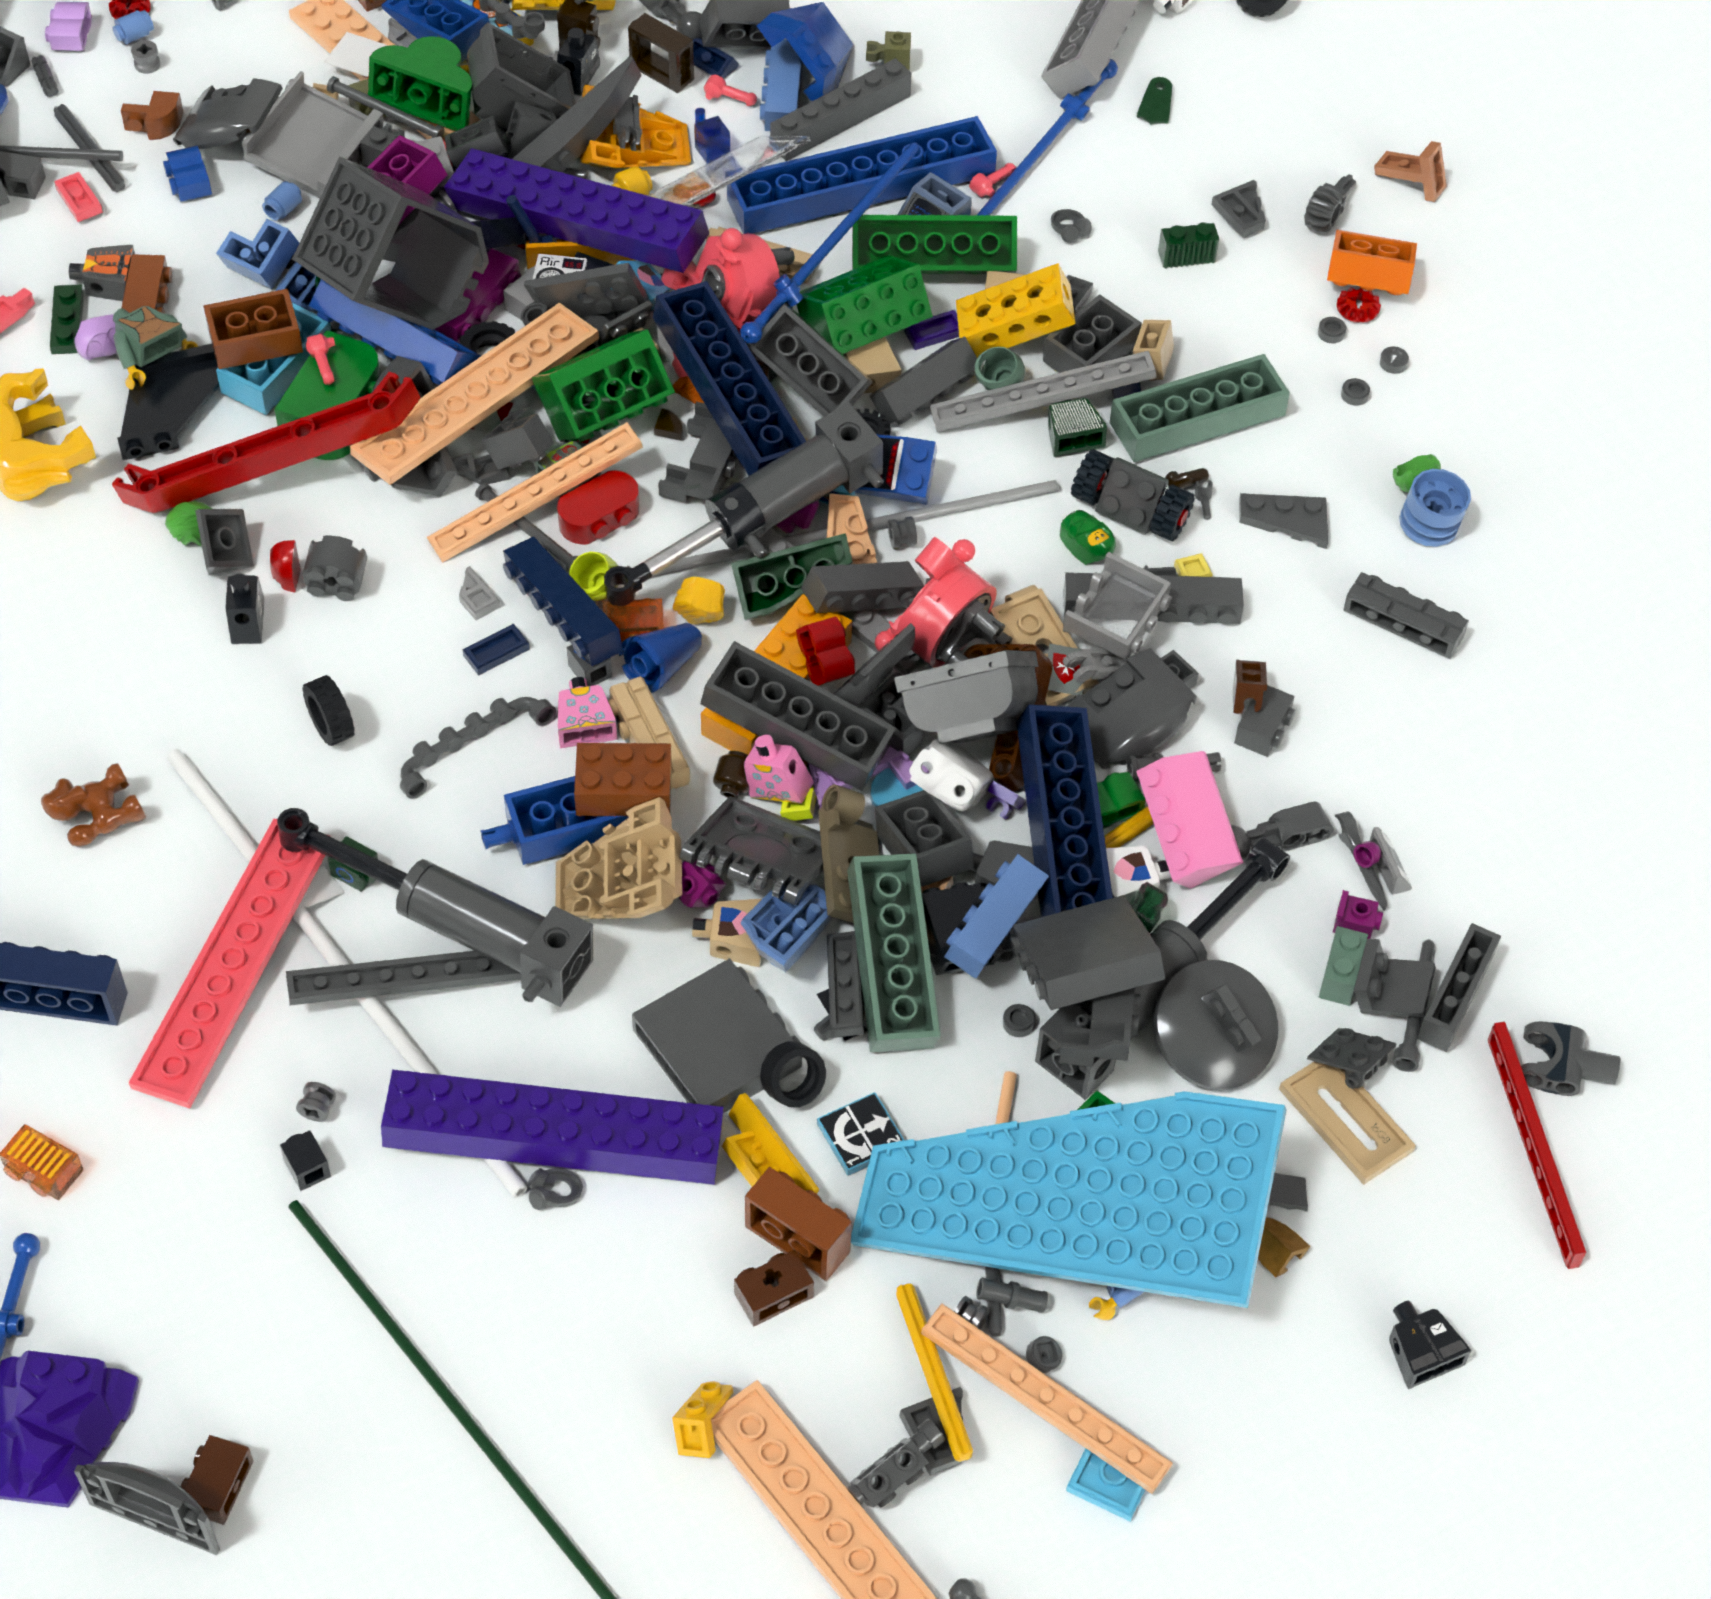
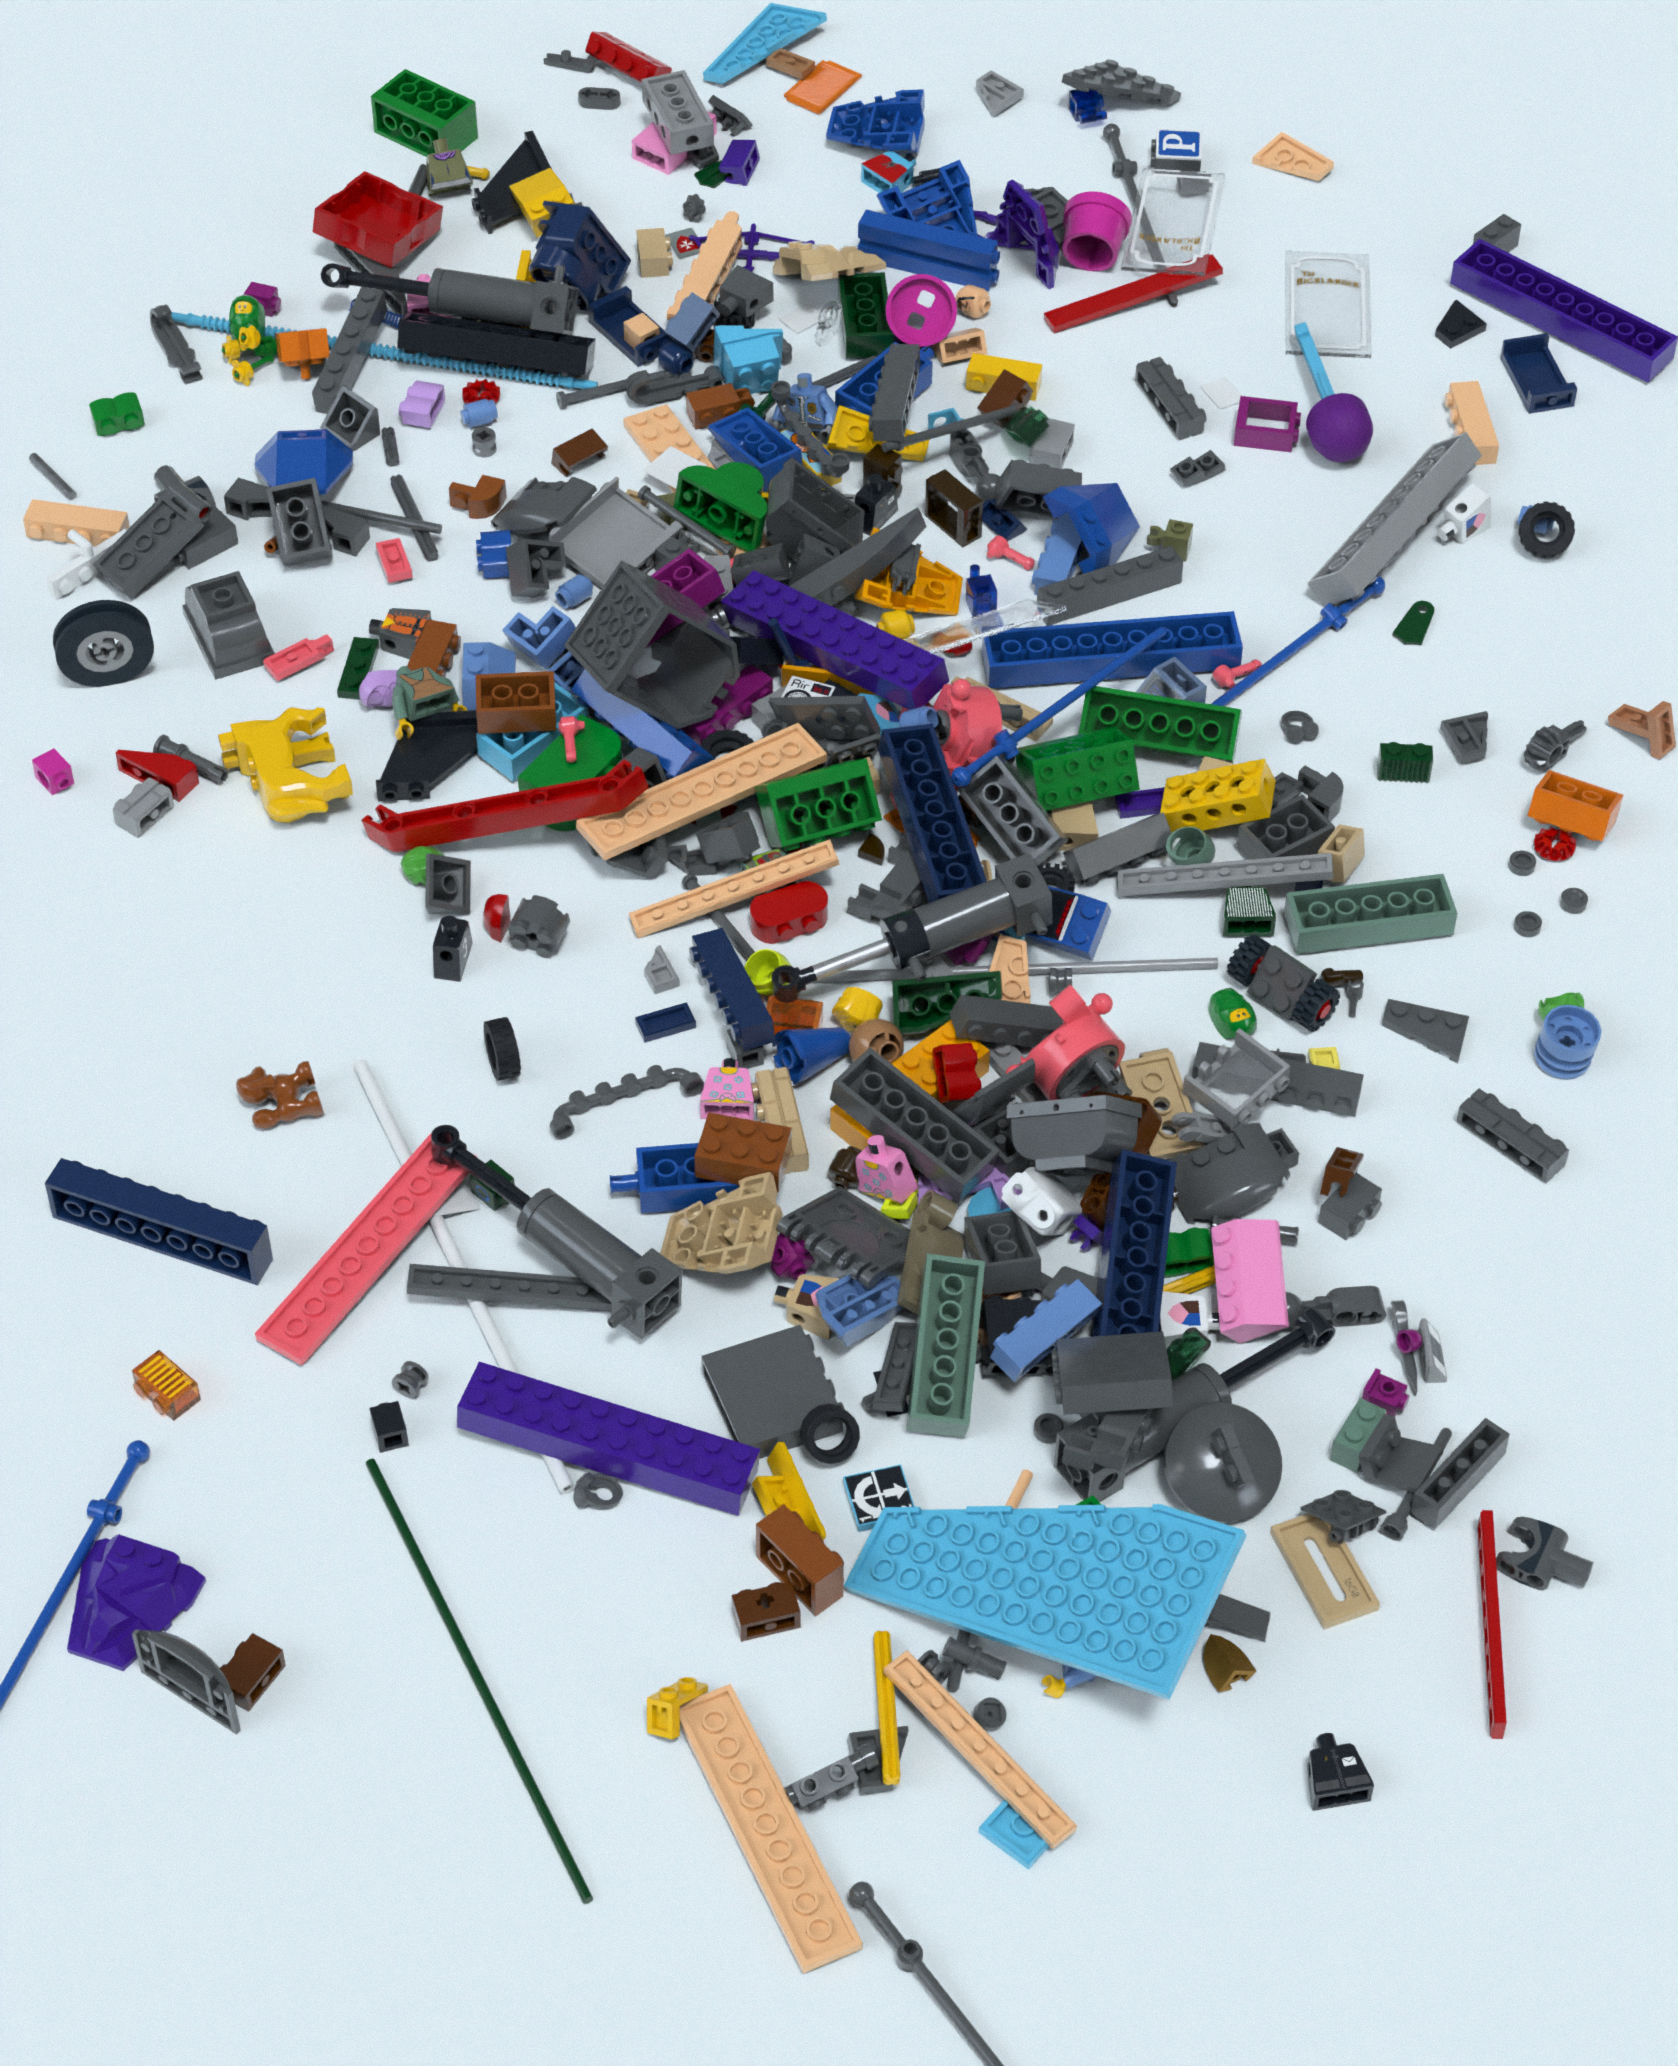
camera: 15 degrees right, 5 degrees down
(201, 289) = (483, 659): none -> medium blue wedge
(230, 179) = (531, 564): none -> dark grey brick
(249, 51) = (578, 450): none -> reddish brown hinge
(688, 276) = (919, 716): none -> medium blue brick
(727, 626) = (880, 1036): none -> medium nougat brick
(1062, 677) = (1167, 1133): light grey sticker -> none
(1116, 287) = (1322, 791): none -> dark grey brick

